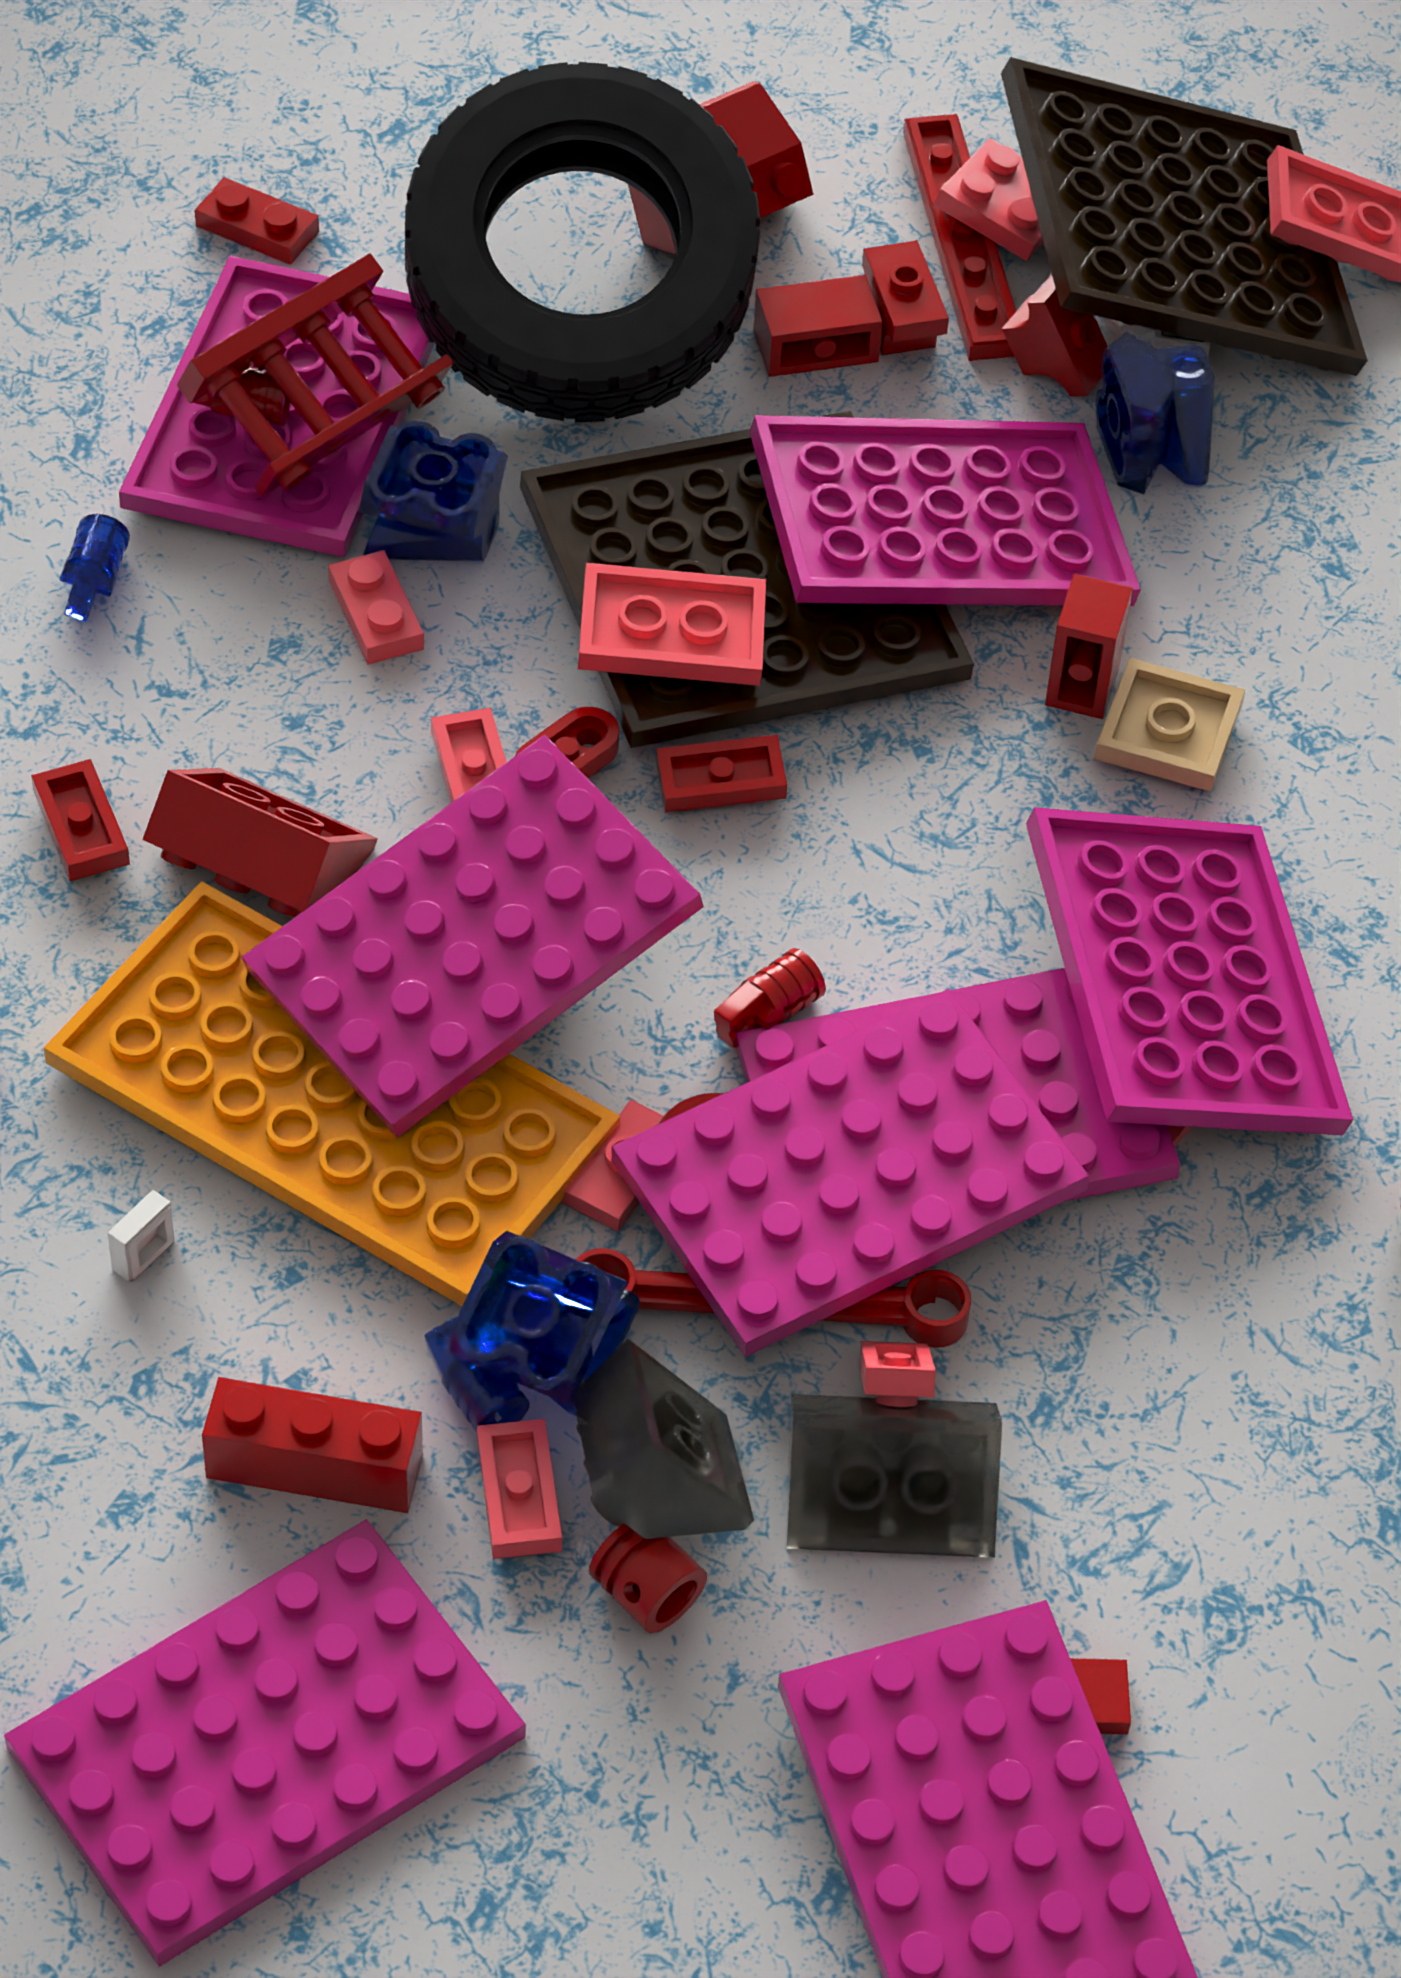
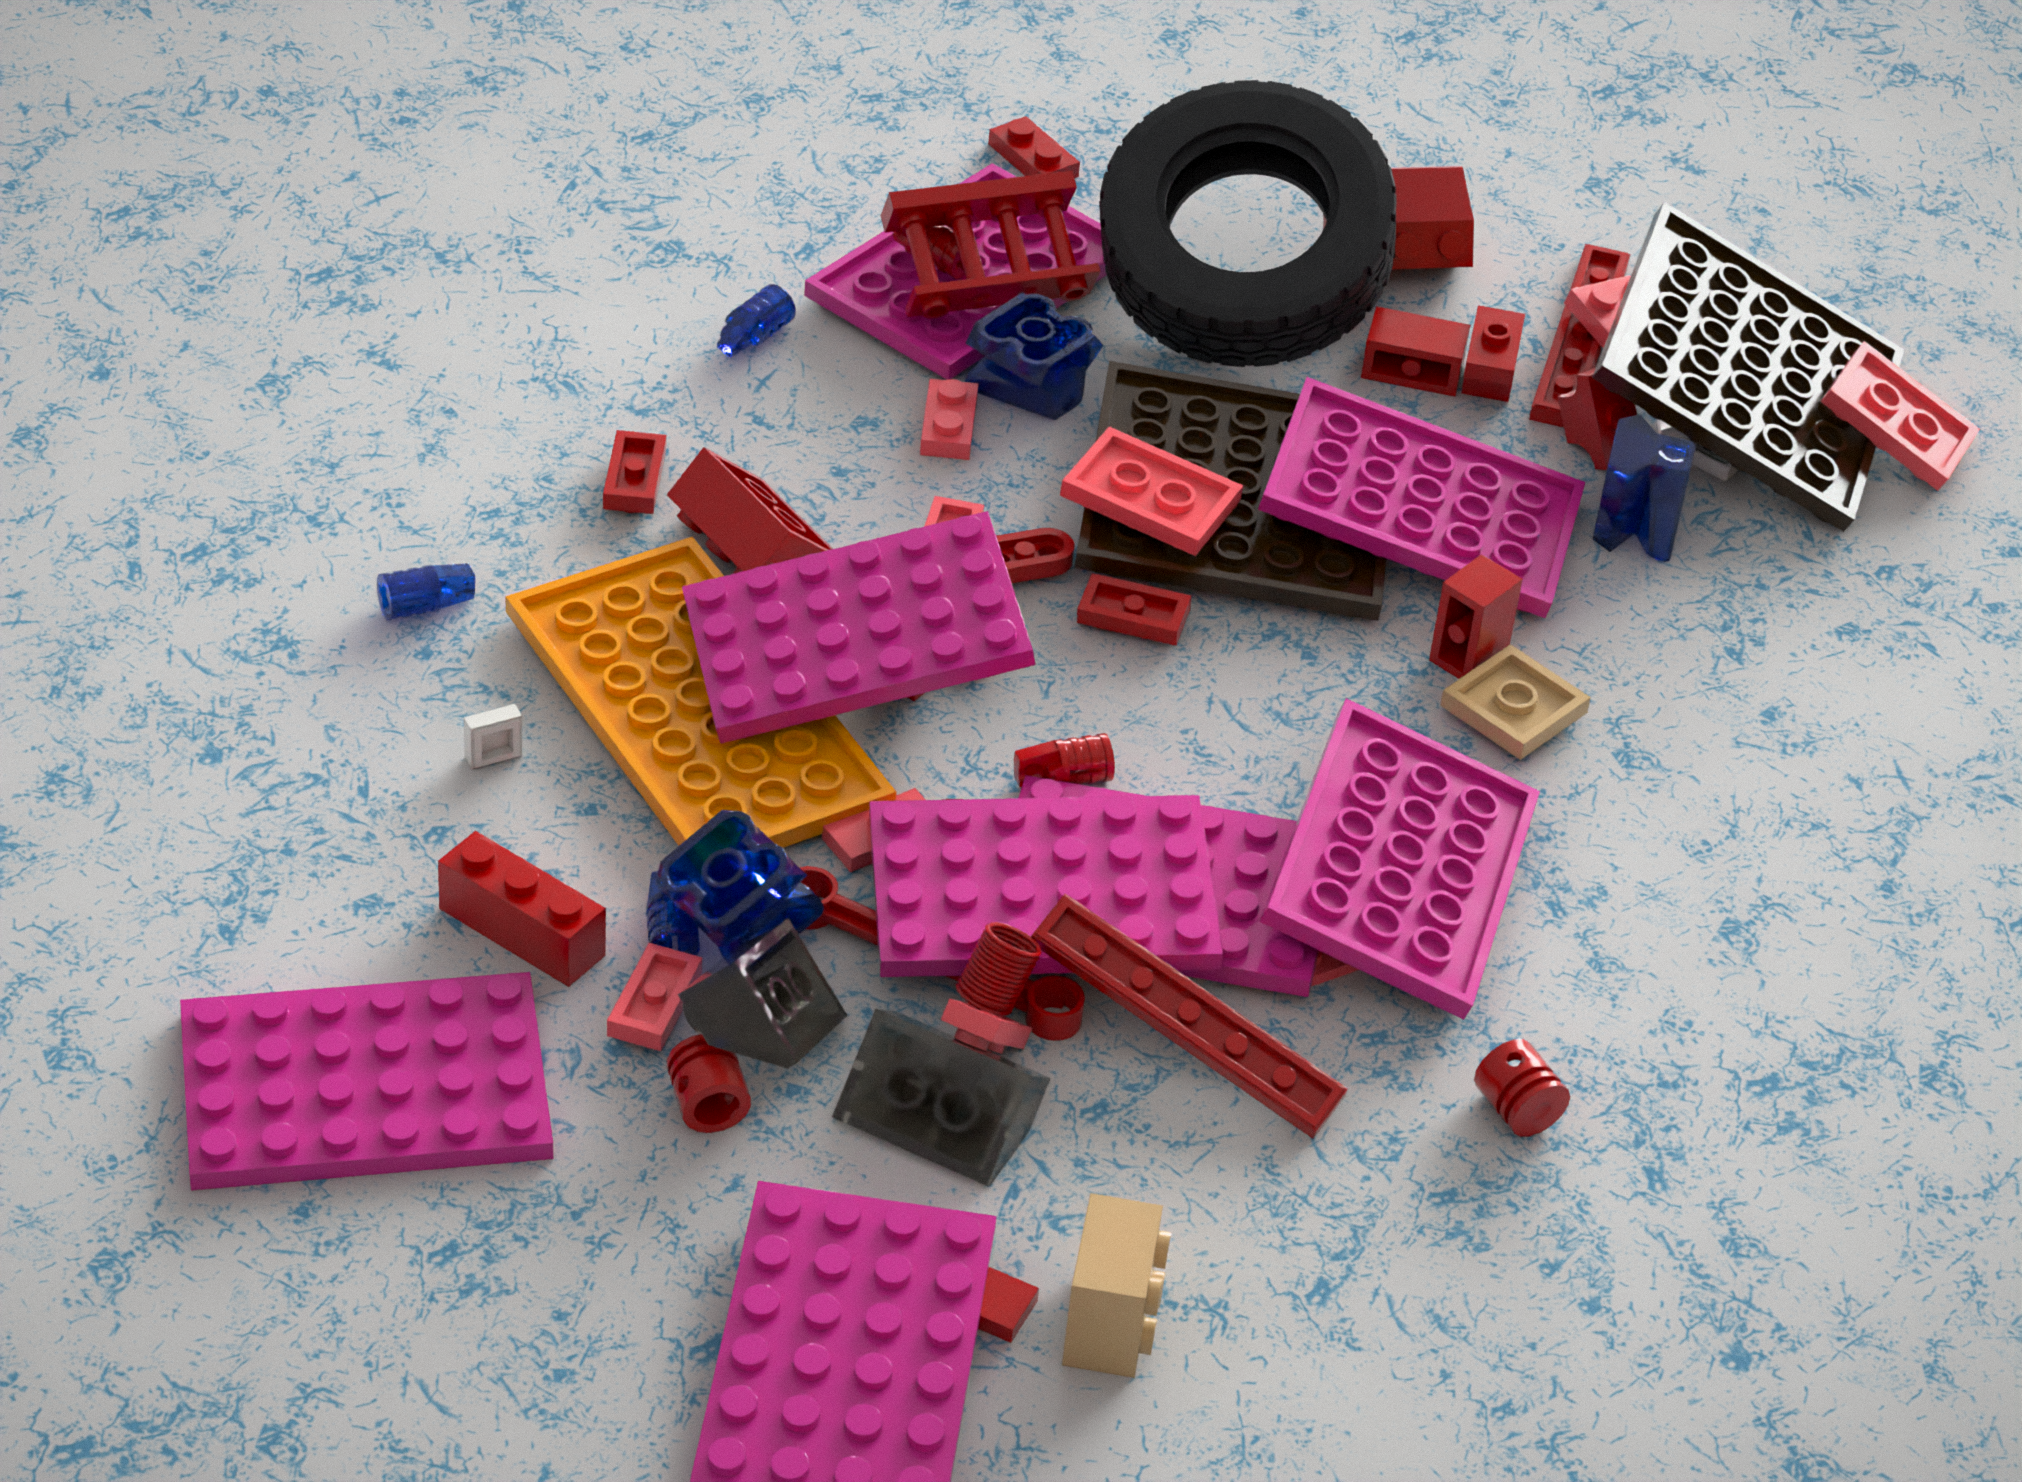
camera: 25 degrees right, 10 degrees down
(878, 1299) = (998, 968): none -> red piece
(1092, 1264) = (1189, 1016): none -> red tile
(1219, 1629) = (1116, 1286): none -> tan brick

